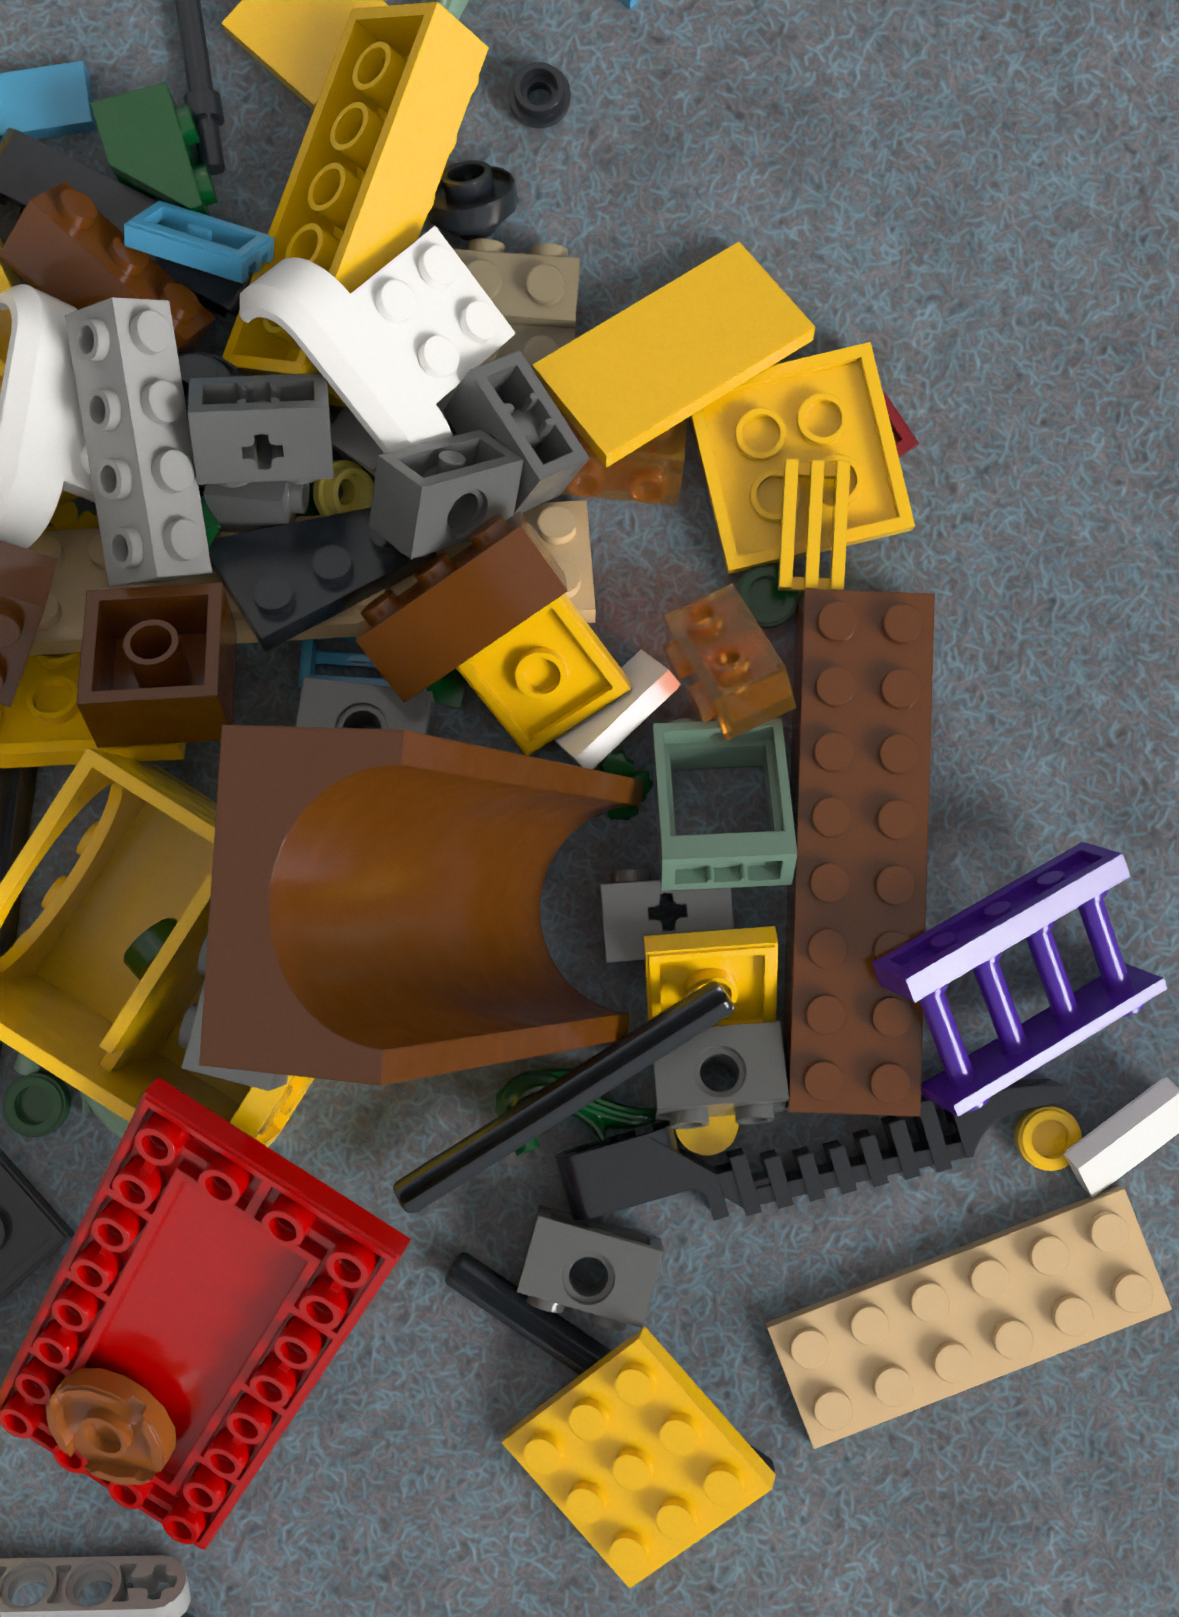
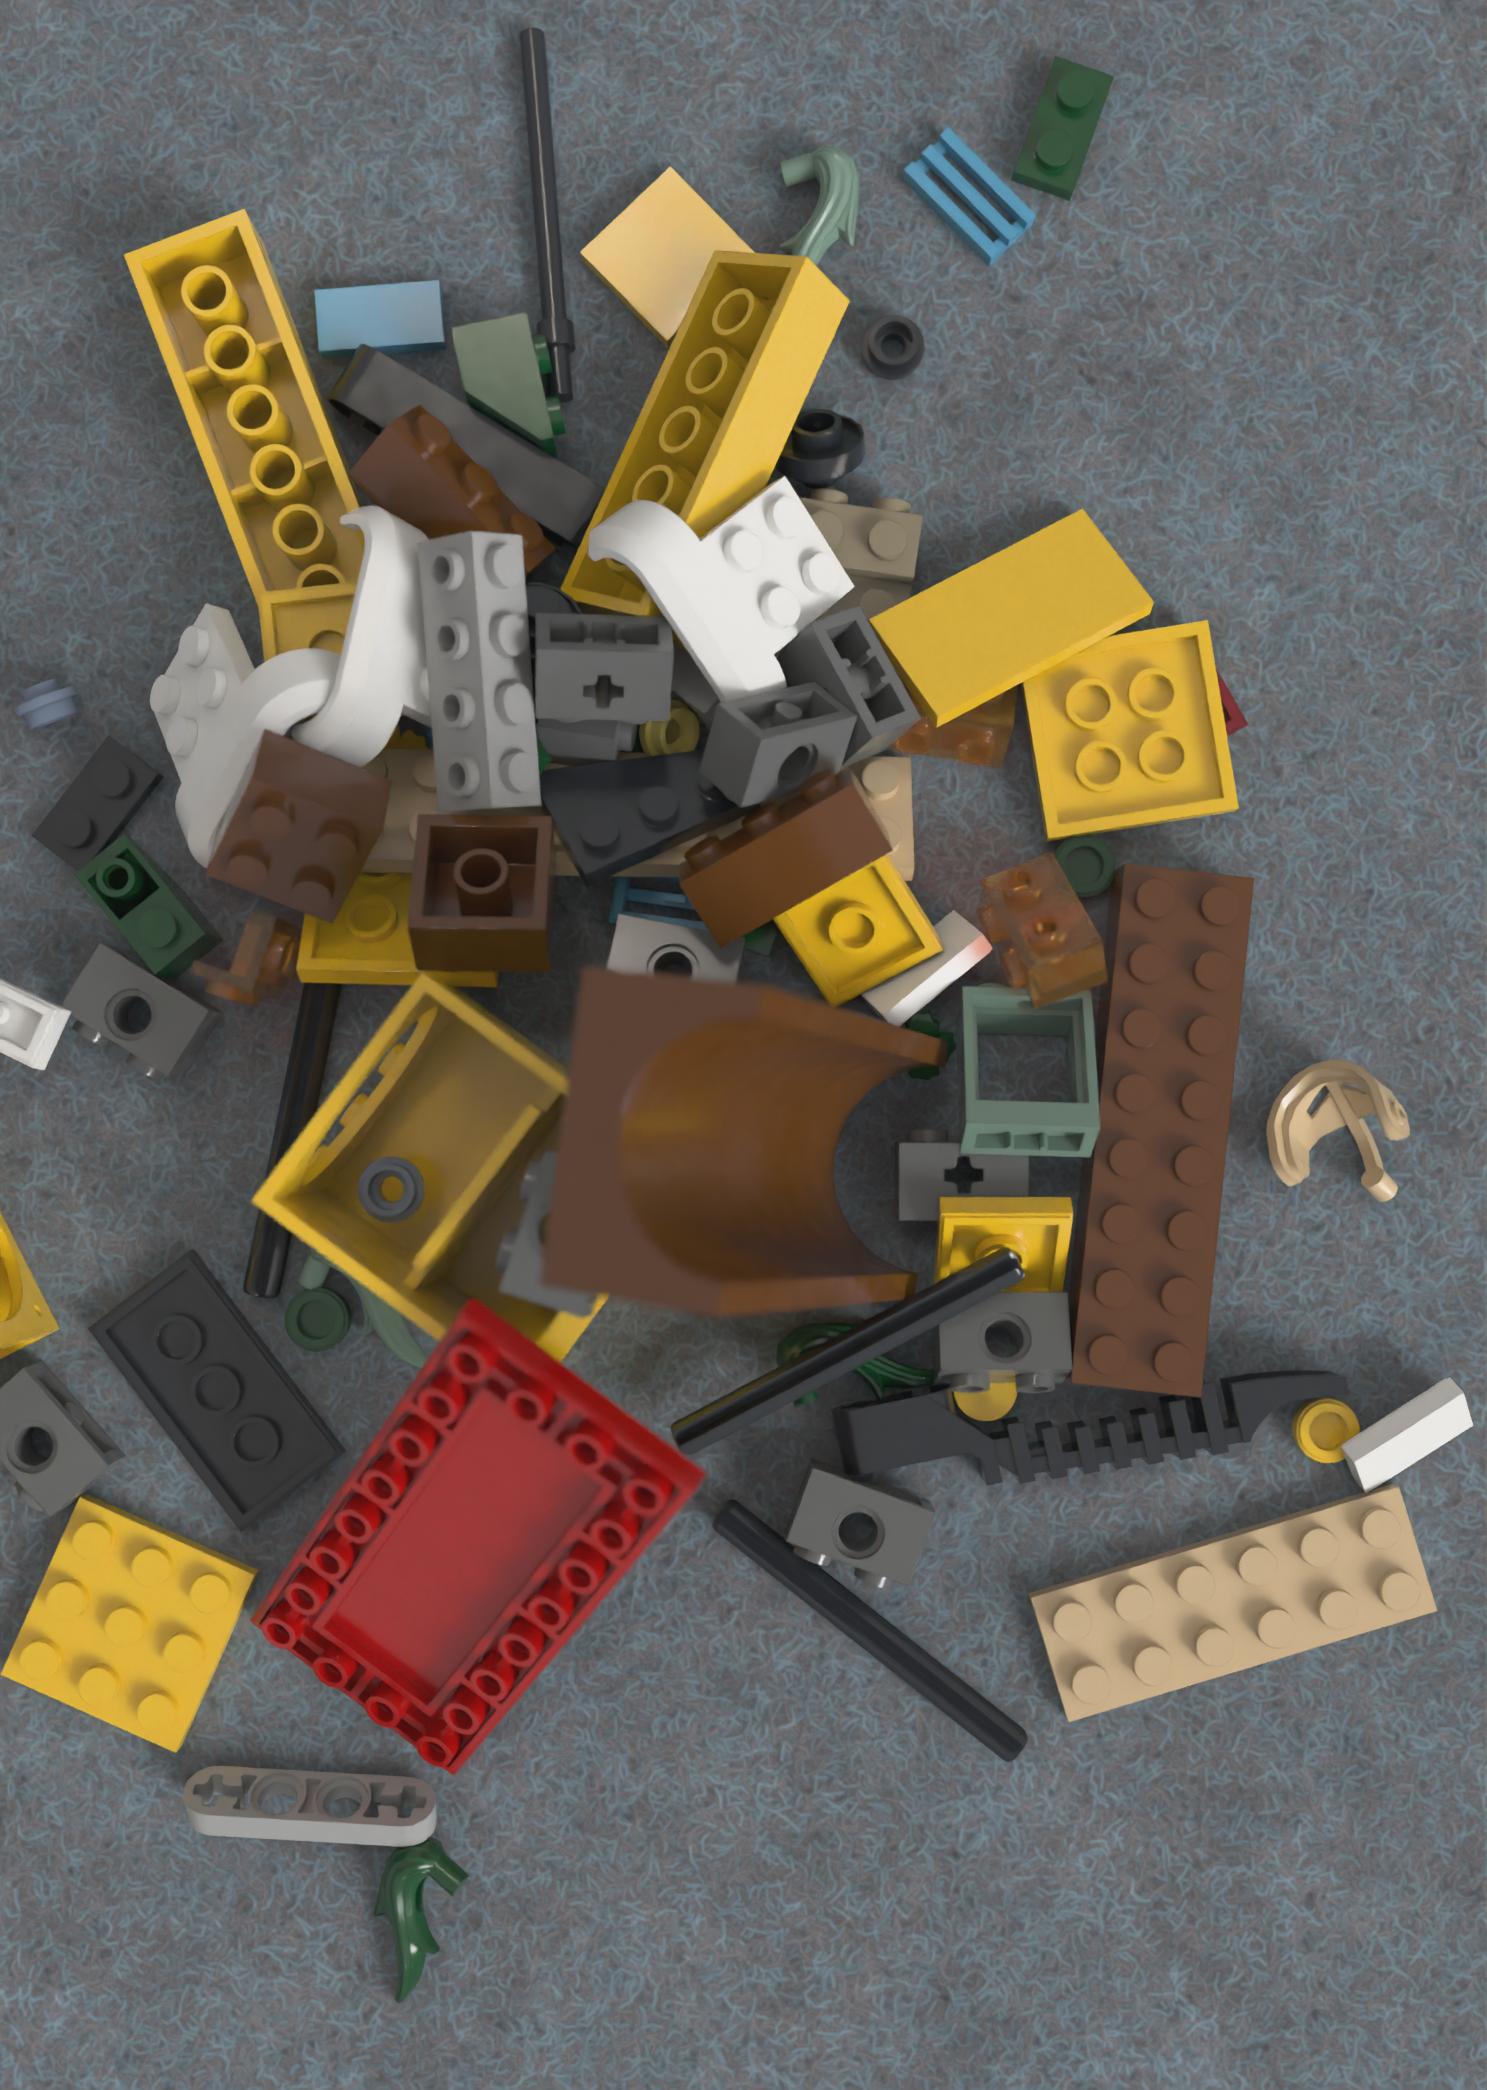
camera: 15 degrees right, 0 degrees up
(73, 973) = (371, 1193): none -> sand blue plate
(111, 1425) = (379, 1640): dark orange tile -> none
(147, 945) = (455, 1172): dark green tile -> none
(199, 241) = (549, 474): dark azure tile -> none
(639, 1458) = (894, 1716): yellow plate -> none
(817, 471) = (1145, 747): yellow tile -> none
(976, 942) = (1270, 1228): dark purple fence -> none
(995, 844) = (1294, 1131): none -> tan helmet

